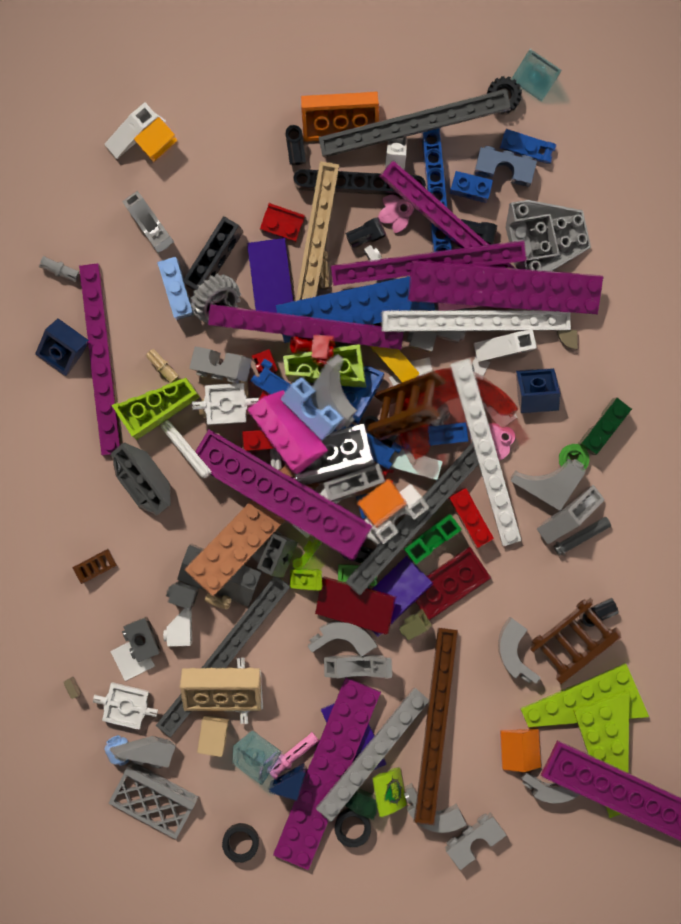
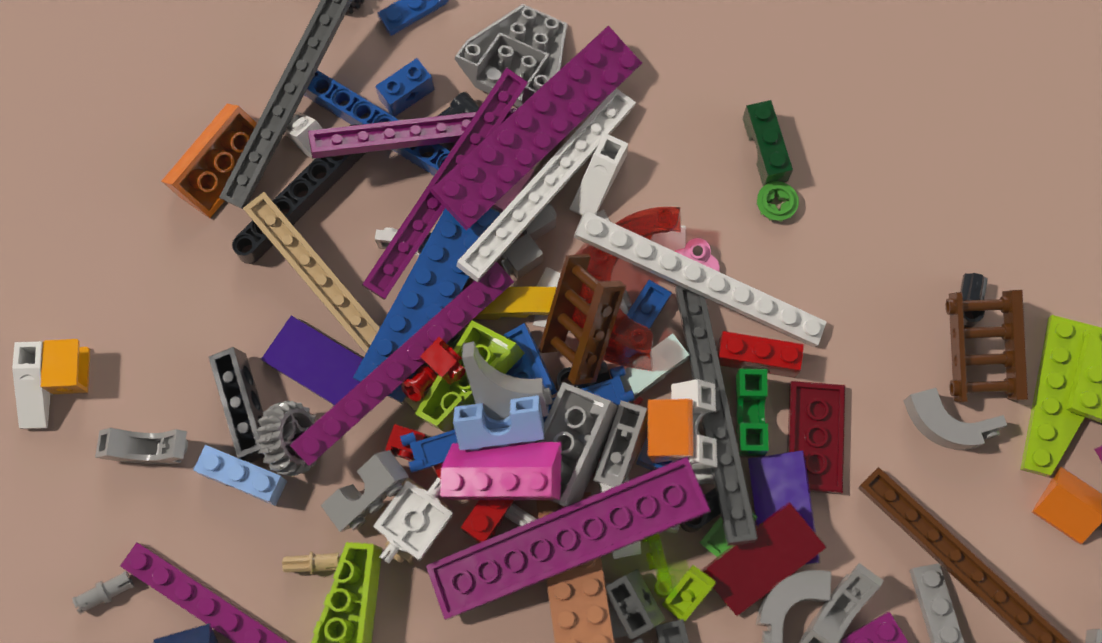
camera: 50 degrees left, 15 degrees down
(185, 449) = (426, 611): white axle -> none
(282, 222) = (272, 306): red plate -> none
(295, 146) = (206, 228): black piece -> none
(323, 282) = (374, 311): tan axle -> none
(370, 231) = (361, 222): black piece -> none
(393, 214) = (364, 185): bright pink plate -> none
(415, 625) = (838, 510): olive brick -> none
(521, 167) = (427, 27): sand blue arch -> none
(538, 390) = (675, 180): dark blue slope -> none
(553, 487) = (794, 238): light grey arch -> none
(568, 338) = (643, 112): dark tan tile -> none
(571, 515) = (840, 249): light grey arch -> none
(582, 536) = (867, 285): dark grey axle -> none

